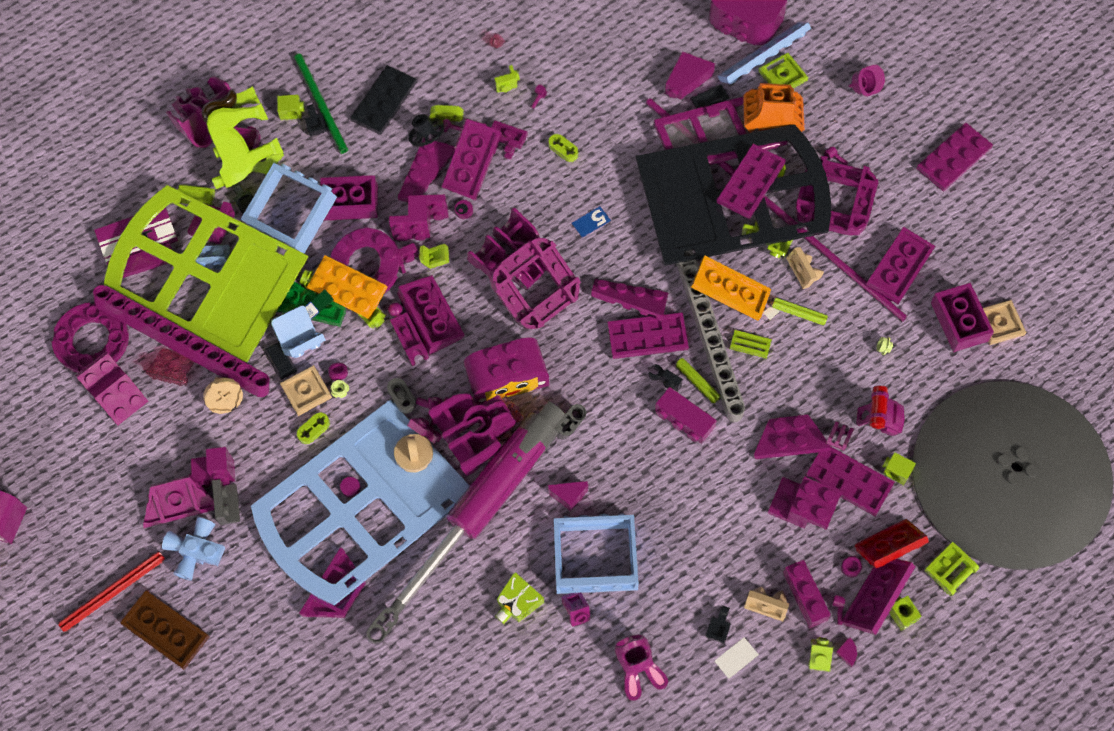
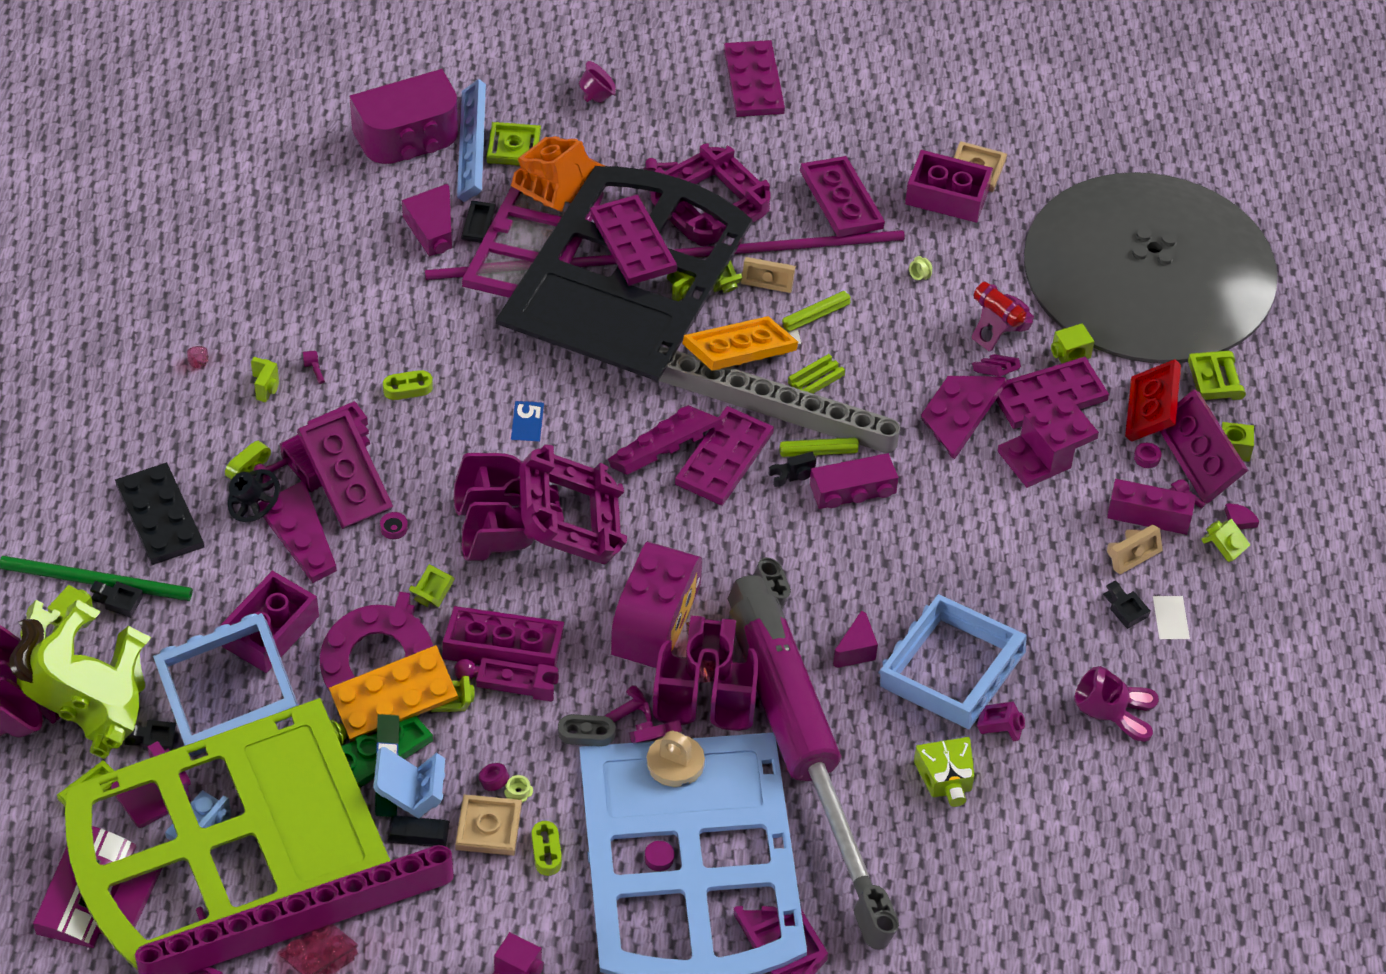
camera: 60 degrees left, 15 degrees down
(222, 395) = (419, 911): tan tile -> none
(417, 222) = (370, 563): magenta bracket -> none

